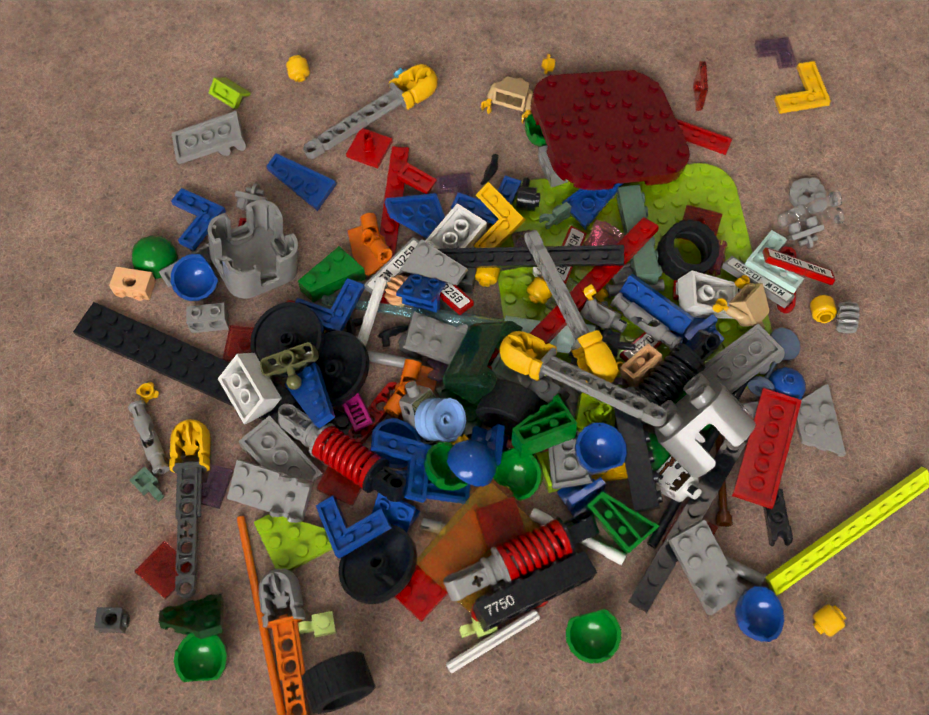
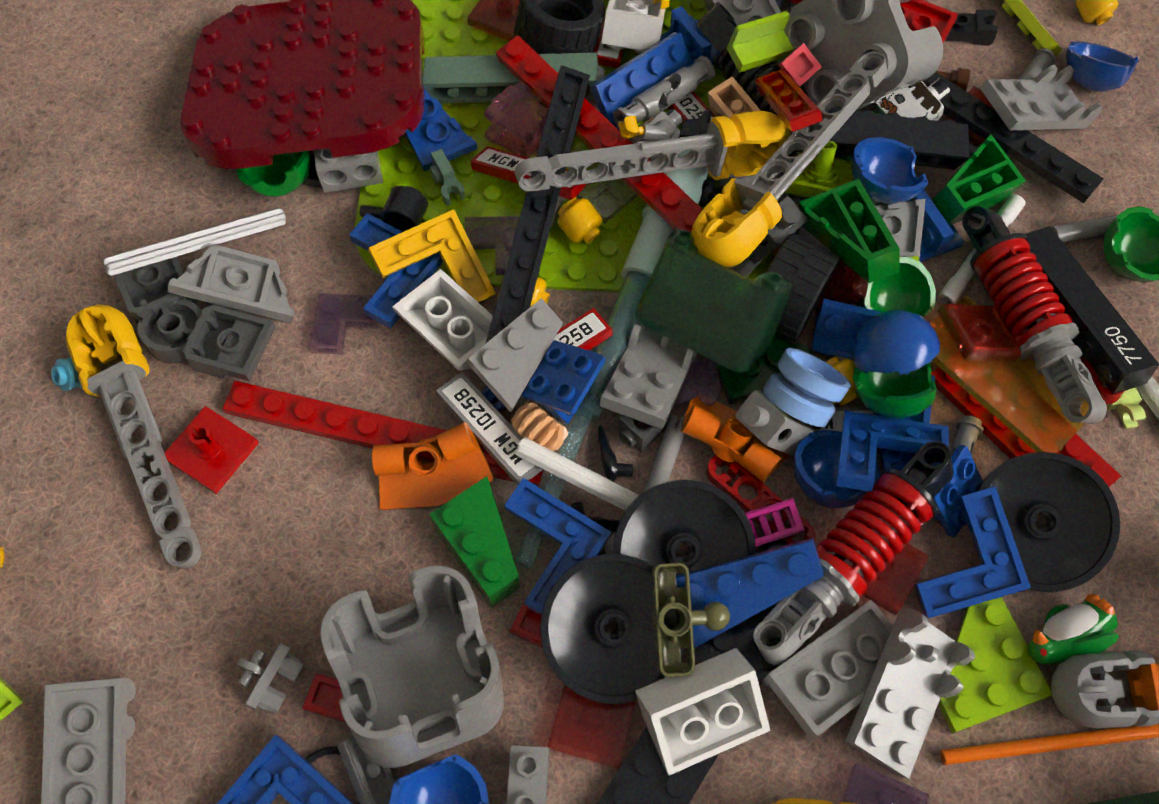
camera: 85 degrees left, 0 degrees up
(305, 182) = (251, 575): blue wing -> none
(313, 582) = (1075, 631): none -> animal
(321, 624) = (1135, 631): yellowish green plate -> none
(416, 178) = (312, 371): red plate -> none
(416, 212) = (388, 377): blue plate -> none
(433, 114) = (210, 339): none -> dark grey plate
(466, 132) = (236, 282): none -> light grey wing
(485, 106) = (193, 241): none -> axle
(491, 169) = (319, 263): black bar -> none
(510, 93) = (184, 200): tan torso -> none
(548, 64) = (136, 146): yellow plate -> none
(609, 604) = (1083, 229): none -> light grey pin
(628, 375) = (788, 100): none -> red tile
(671, 388) = (800, 64): none -> coral plate
(680, 360) = (760, 42): none -> lime panel

